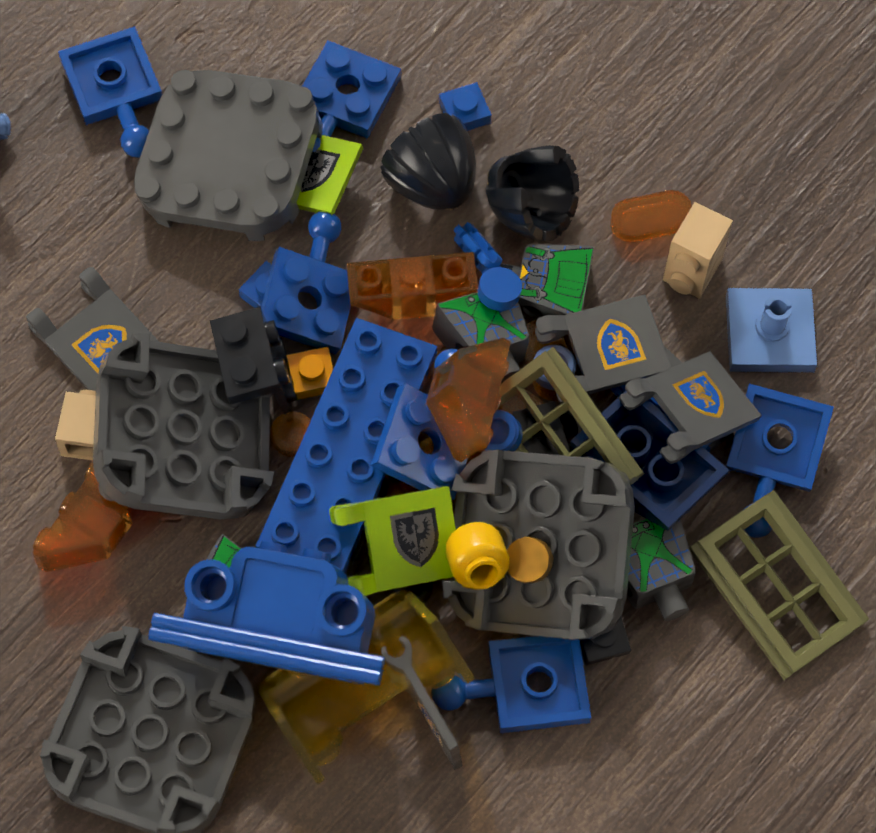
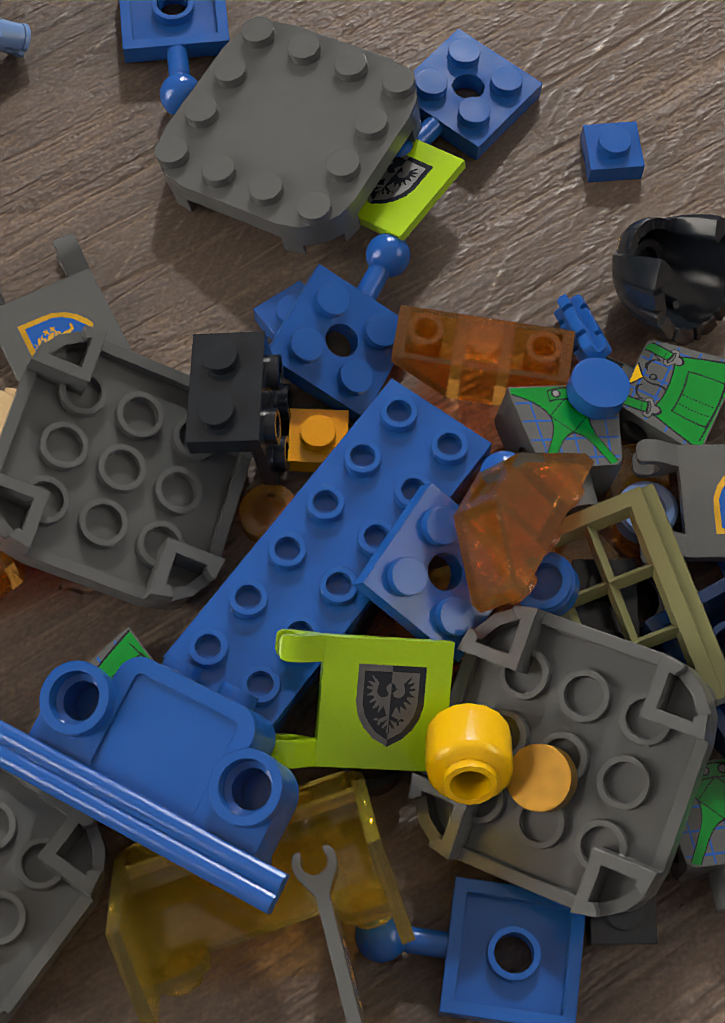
camera: 15 degrees right, 0 degrees up
(432, 163) = (550, 204): black hair -> none

